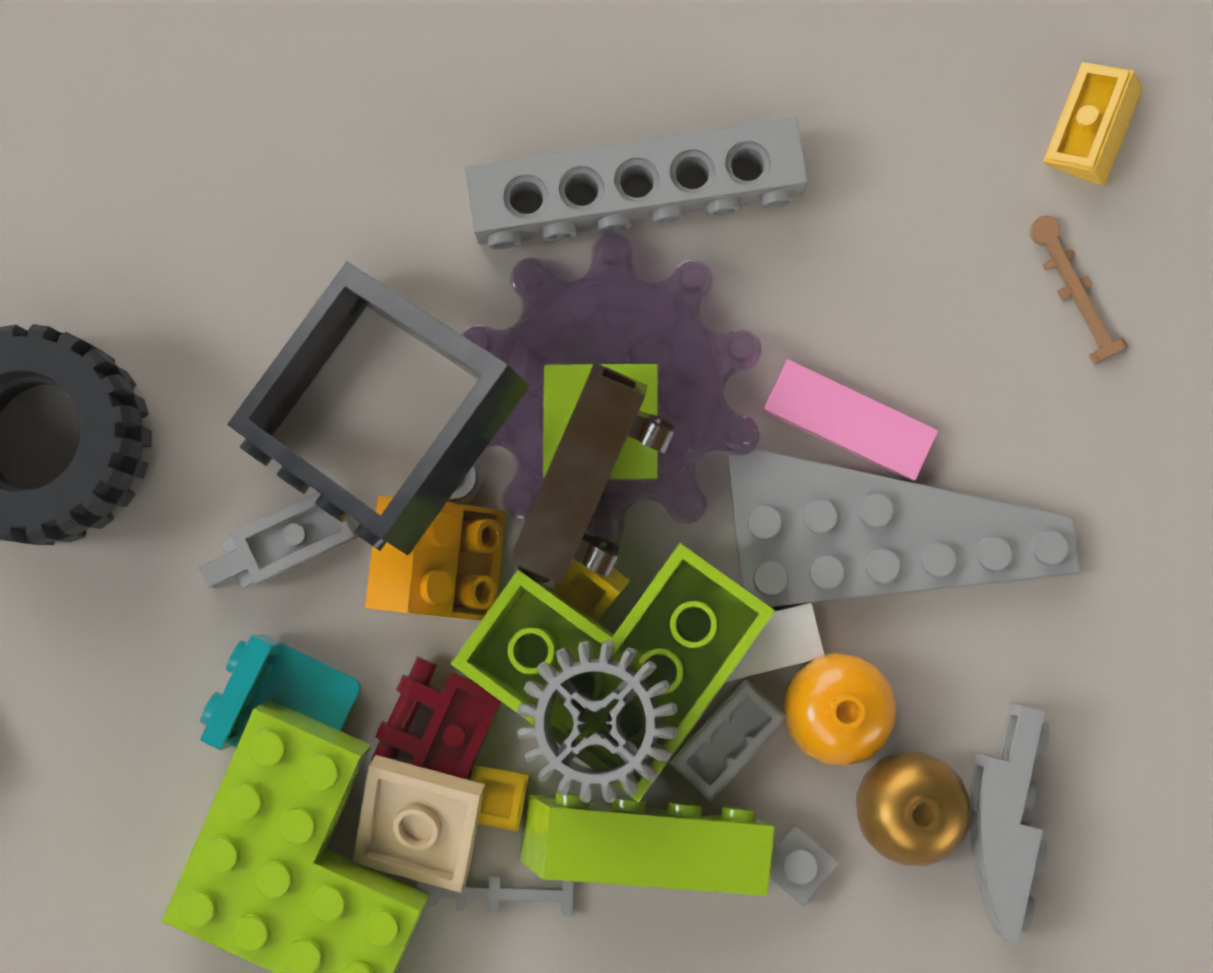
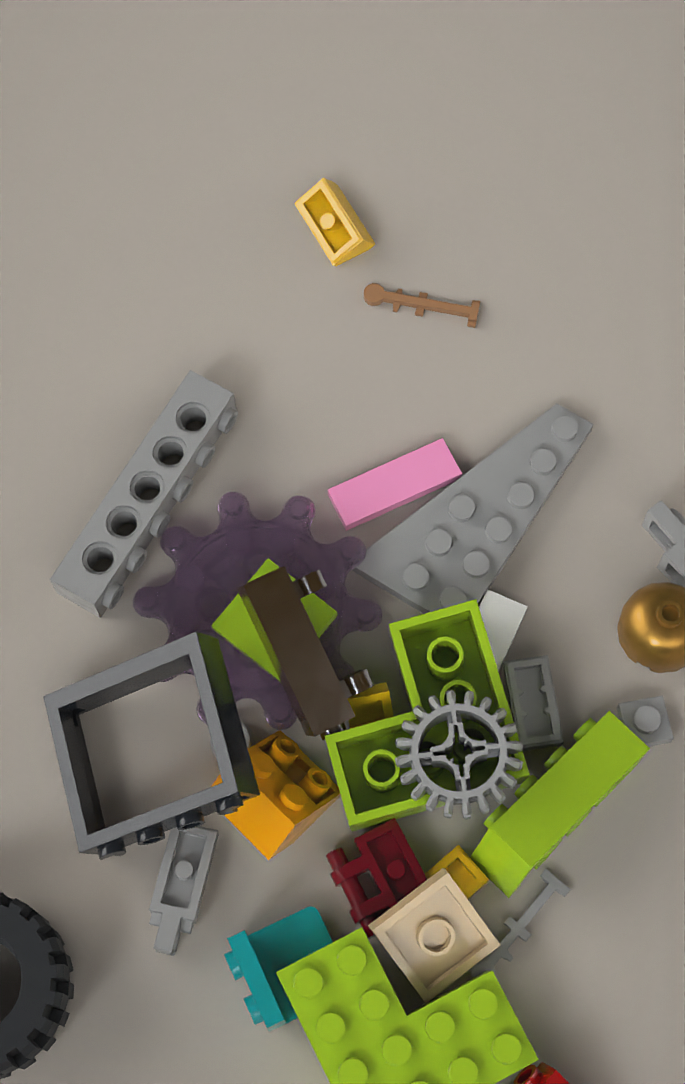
camera: 50 degrees left, 15 degrees down
(839, 709) = (567, 623): light orange cylinder -> none

